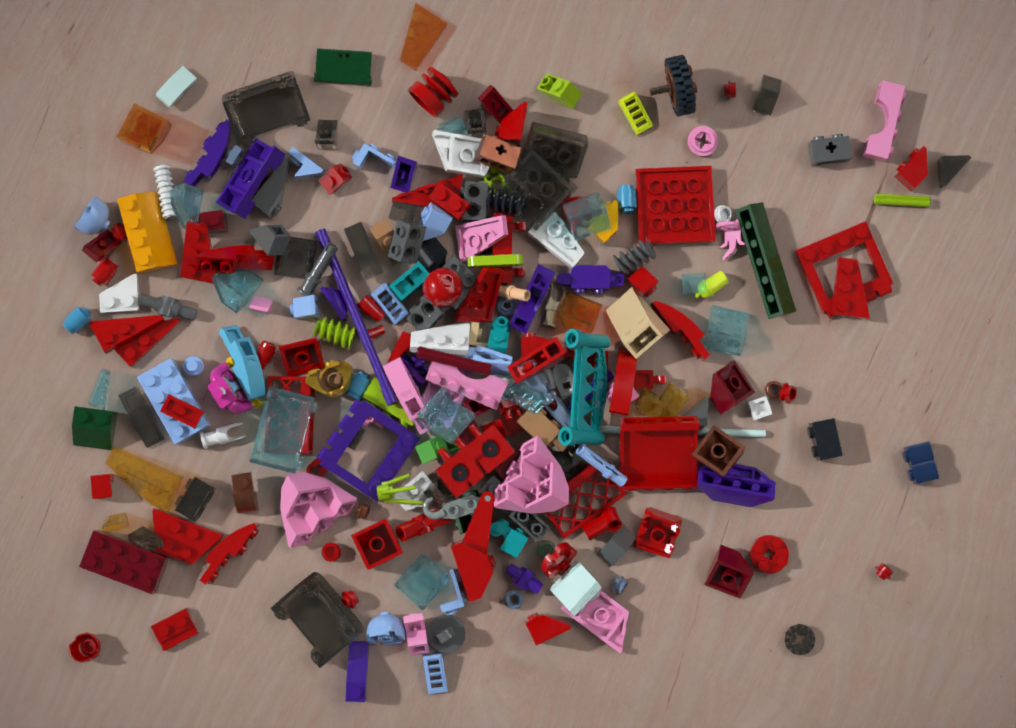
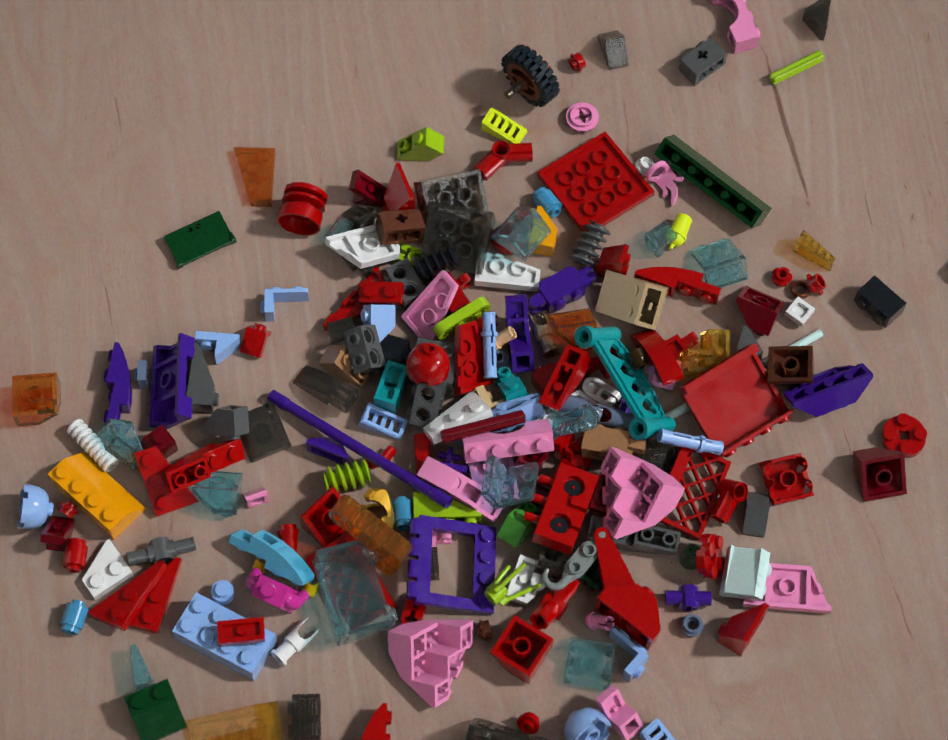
camera: 25 degrees left, 20 degrees down
(141, 417) = (199, 672): clear smoke slope -> none
(176, 86) = (43, 346): light aqua slope -> none
(244, 494) = (355, 681): copper brick -> none
(265, 107) = (147, 312): clear smoke windscreen -> none
(305, 307) = (302, 469): light blue slope -> none
(314, 277) = (292, 438): dark grey pin -> none
(314, 392) = (372, 533): none -> clear orange beam
(327, 134) = (223, 307): clear smoke slope -> none
(331, 552) = (479, 689): red plate -> none
(371, 308) = (368, 435): red cone -> none
(404, 174) = (320, 296): dark purple slope -> none
(446, 554) = (595, 620): none -> bright pink pin
(446, 633) = (648, 698): dark grey tile -> none
(506, 288) = (489, 345): none -> light blue pin
(513, 539) = (651, 565): teal brick -> none
(605, 139) = (512, 154): none -> red piece
(606, 376) = (638, 359): none -> dark brown hose
(619, 585) = (784, 549): sand blue plate -> none
(771, 370) = (779, 281): none -> red plate
(803, 363) = (811, 250): none -> clear yellow slope
(835, 244) = (813, 170): red hinge -> none
(849, 291) = (806, 165): red wing -> none
(915, 170) = (789, 36): red slope -> none

